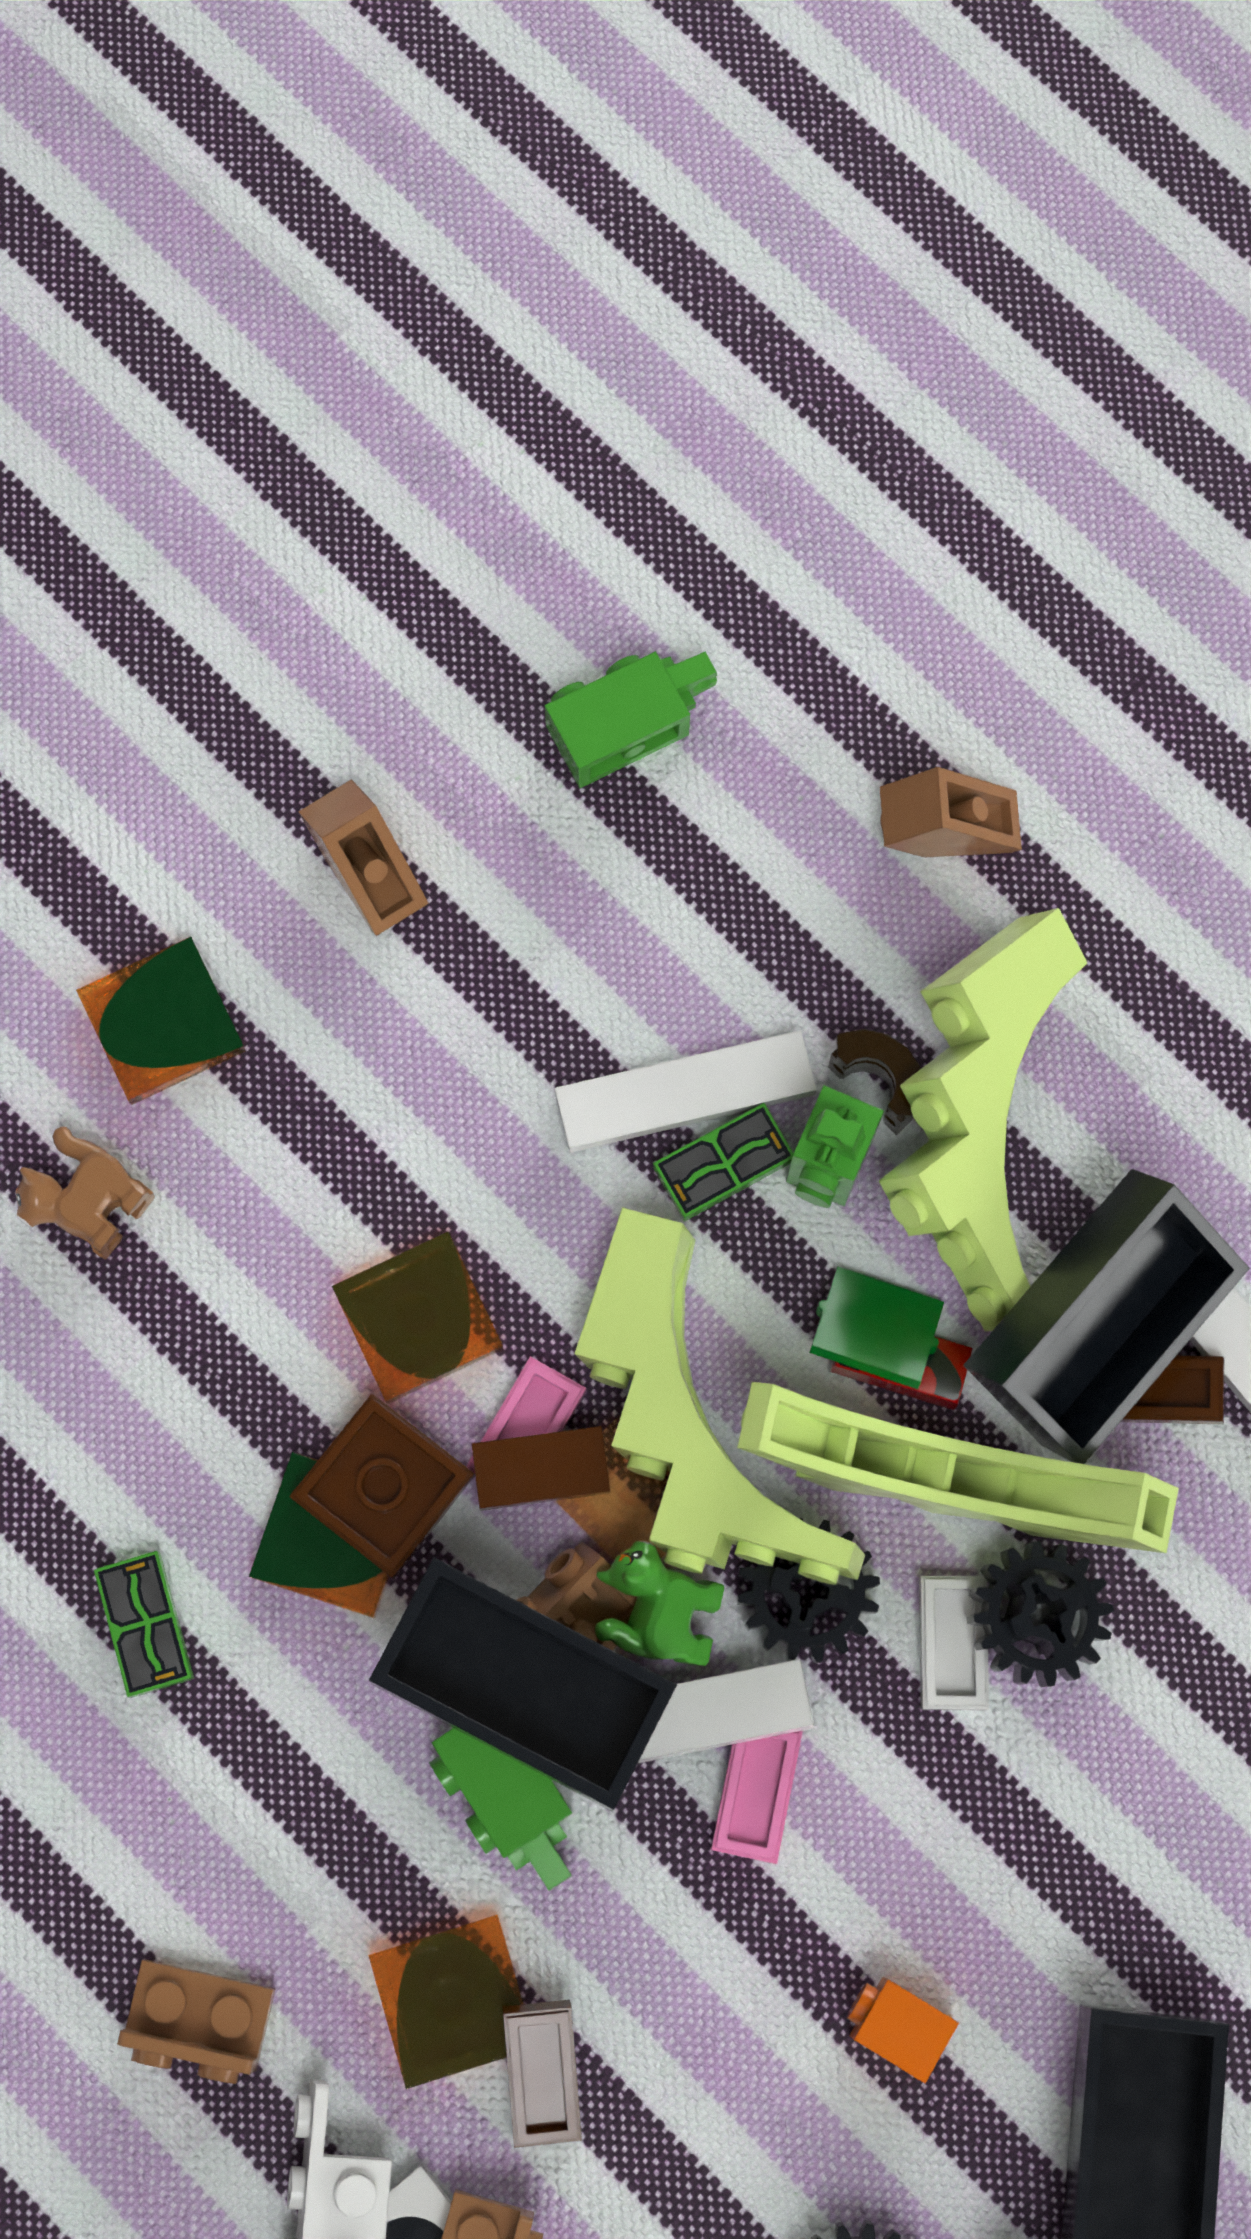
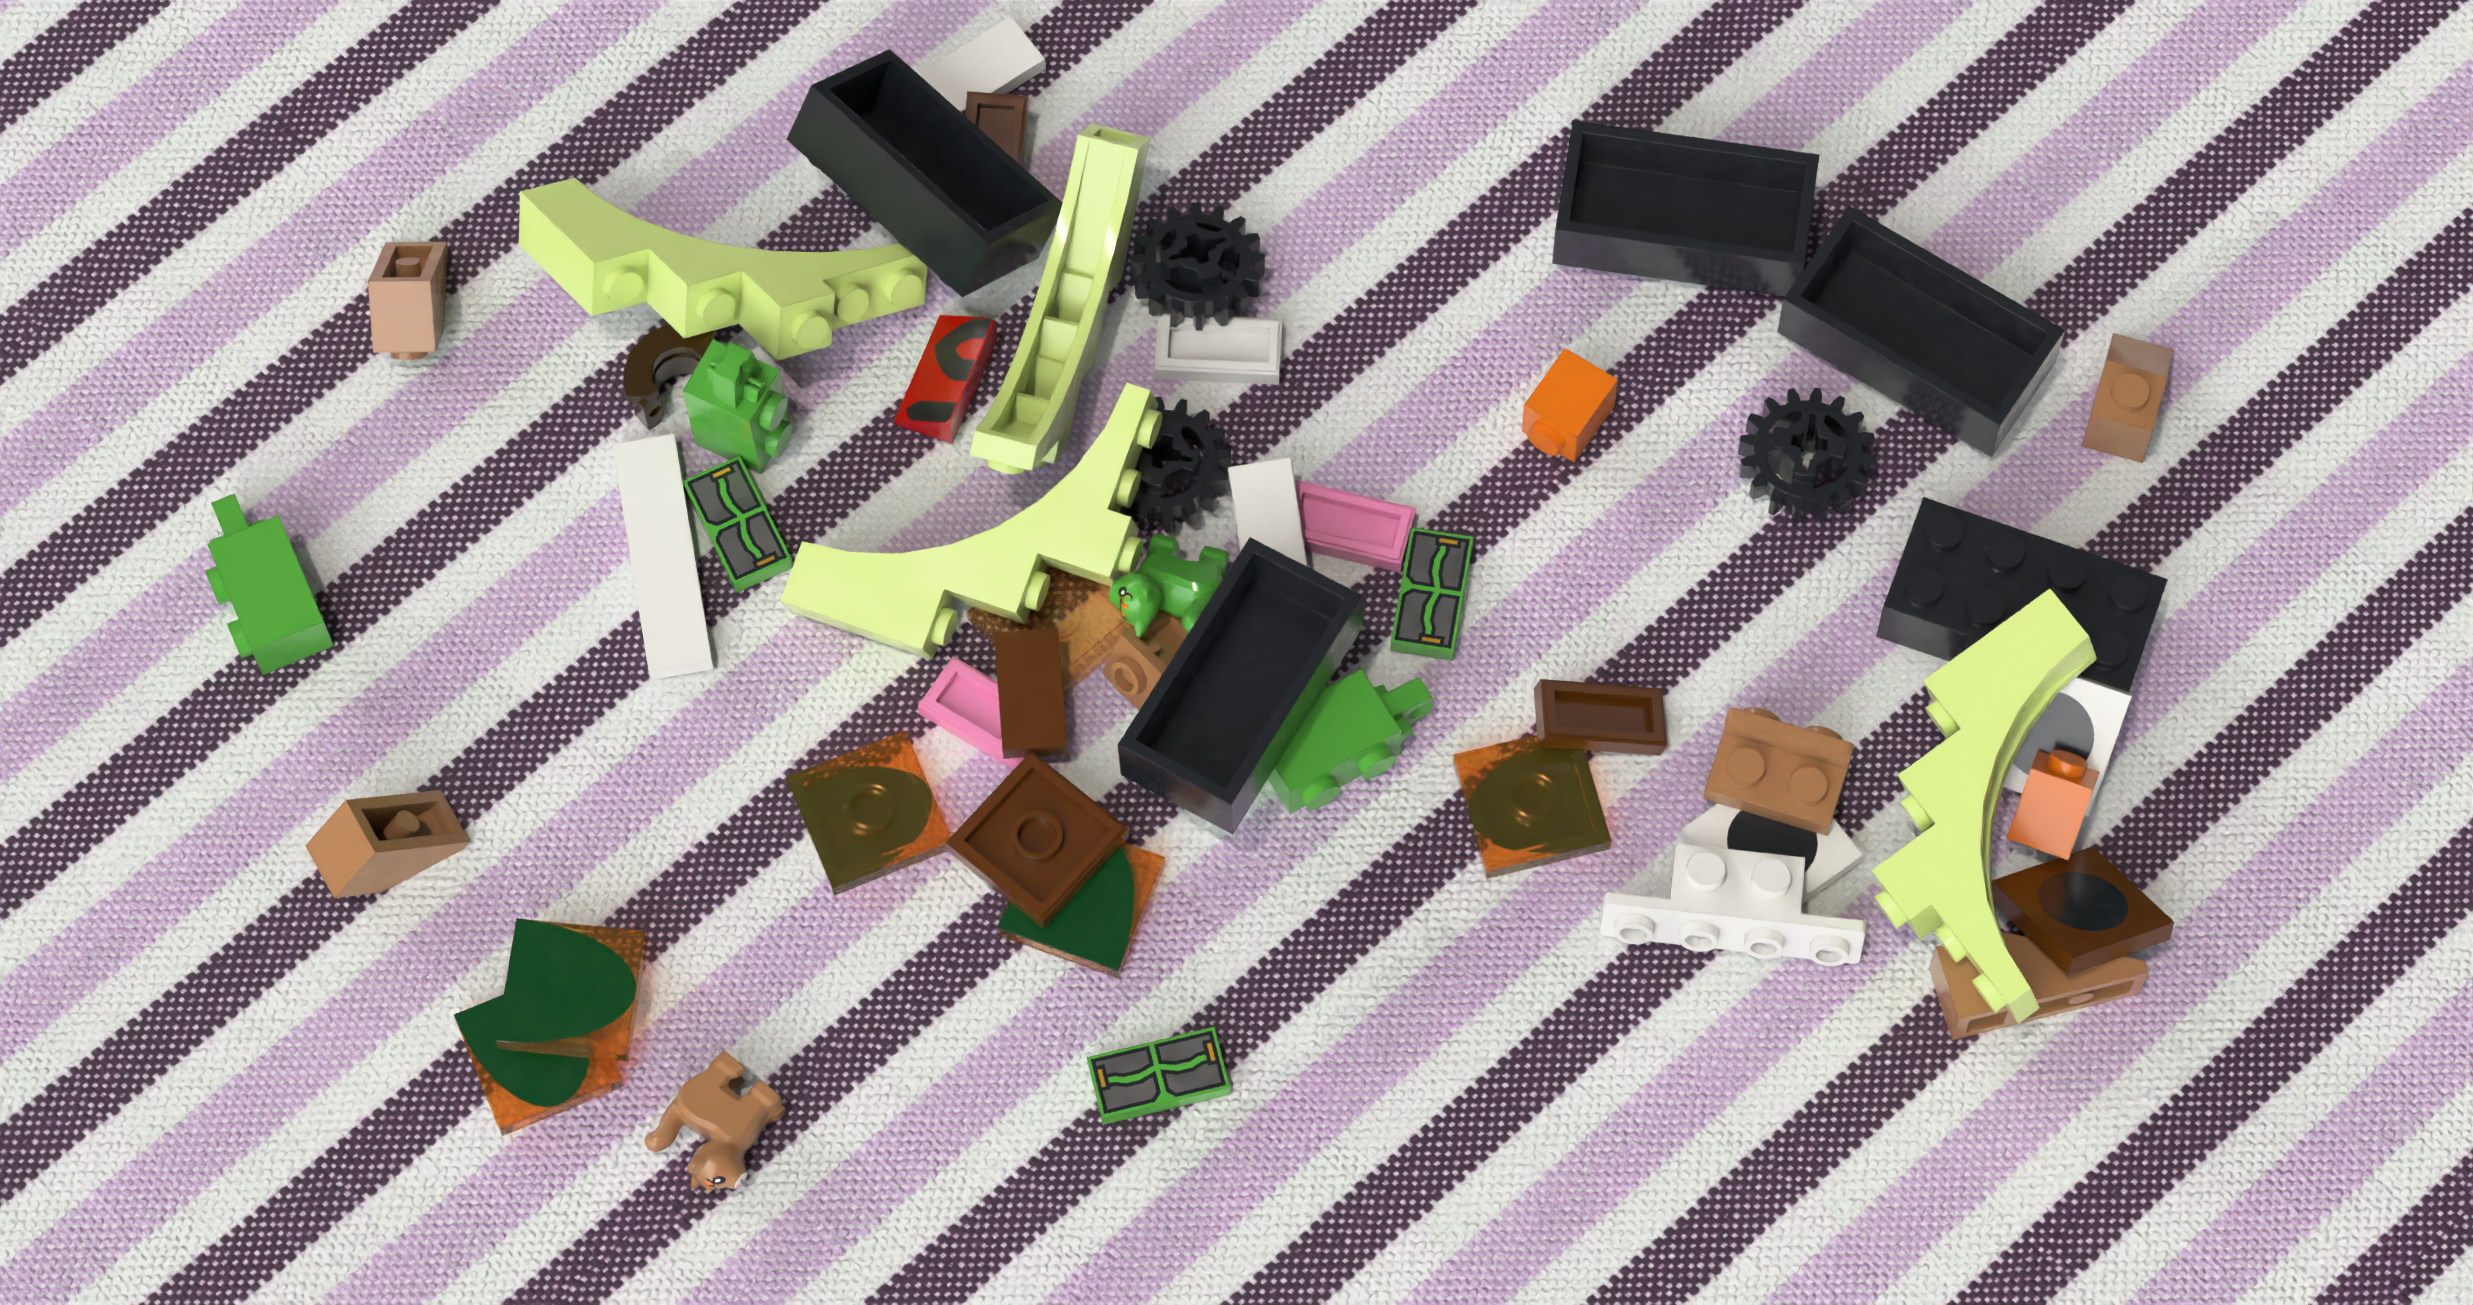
camera: 85 degrees left, 10 degrees down
(197, 2021) = (1539, 1030): medium nougat bracket -> none
(211, 1043) = (572, 990): none -> dark green tile
(682, 1885) = (1431, 593): none -> tile
(877, 1327) = (914, 390): green piece -> none

